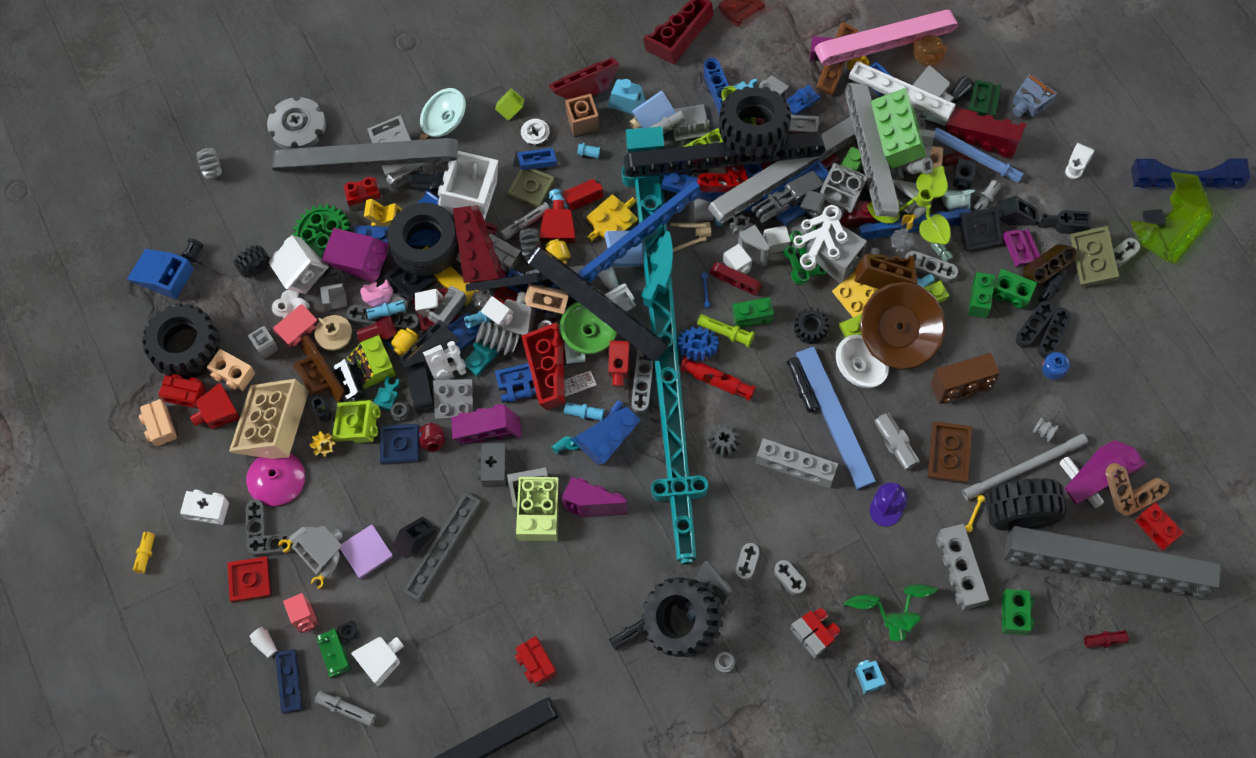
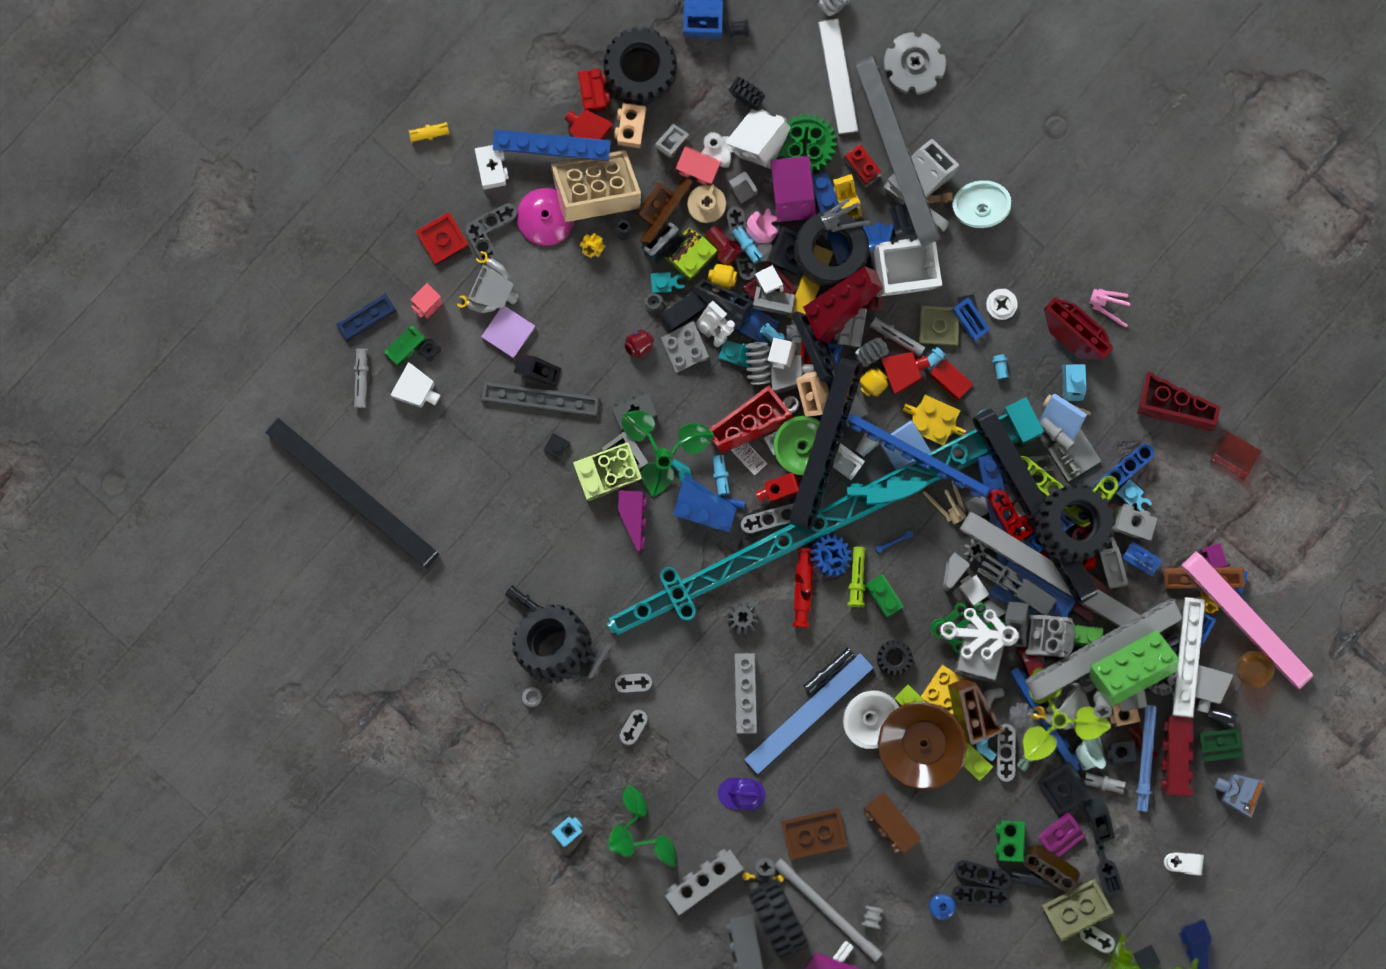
camera: 60 degrees right, 15 degrees up
(158, 423) = (553, 83): light nougat brick -> none
(212, 442) = (551, 145): none -> blue plate
(262, 640) = (390, 279): white cone -> none
(276, 188) = (838, 77): none -> white tile
(356, 421) = (626, 266): lime plate -> none
(398, 222) = (830, 218): none -> dark grey plant
(399, 444) = (622, 316): dark blue tile -> none
(484, 424) = (669, 389): magenta wedge -> none
(493, 548) = (556, 446): none -> black plate
(509, 104) = (1022, 265): lime panel -> none
(515, 377) = (728, 393): blue plate -> none
(536, 661) = (466, 528): red brick -> none
(541, 417) = (660, 474): none -> green plant
(565, 56) = (1100, 297): none -> bright pink plant
(582, 115) = (1035, 344): nougat head -> none
(735, 278) = (915, 568): dark red beam -> none
(737, 259) = (935, 561): white brick -> none
(818, 640) = (595, 761): hips -> none
(897, 441) = (805, 780): light grey piece -> none
(973, 511) = (761, 873): none -> dark grey wheel
(981, 295) = (991, 811): green brick -> none
(1011, 611) = (678, 940): green brick -> none

